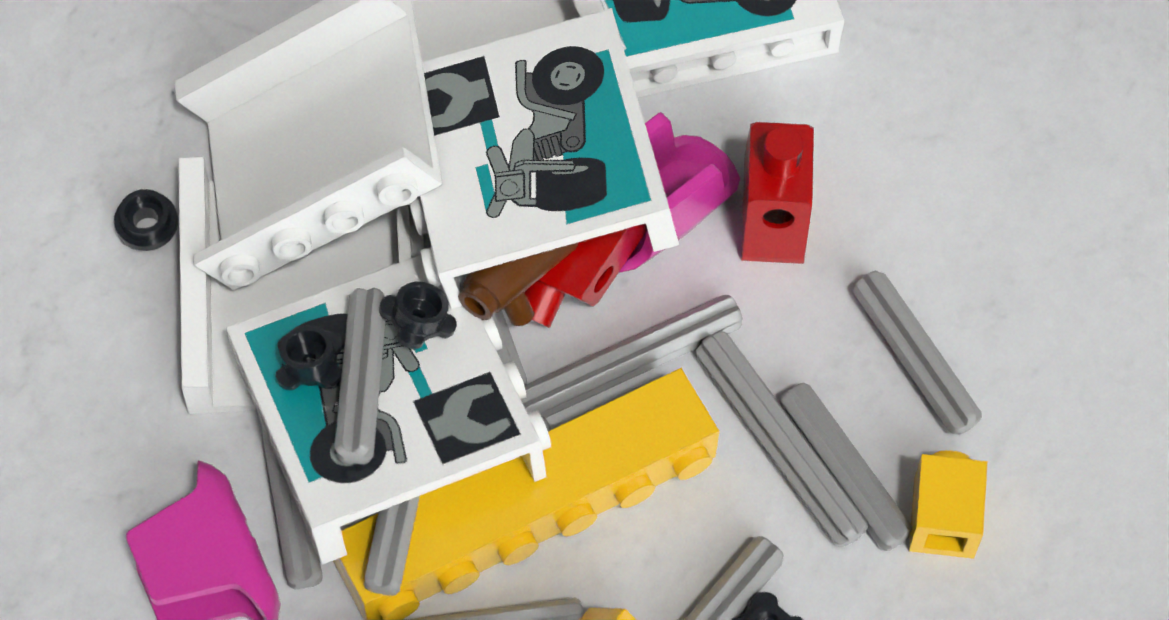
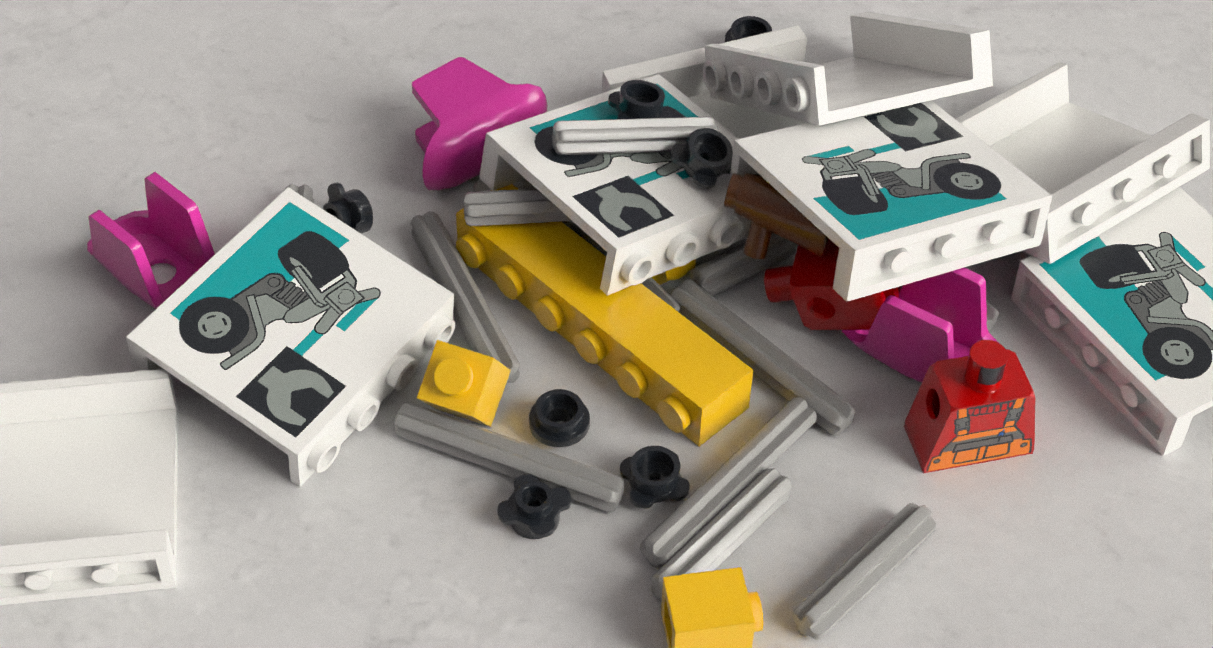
camera: 75 degrees right, 15 degrees down
(662, 561) = (559, 406): none -> black plate
(761, 490) = (654, 463): none -> black plate

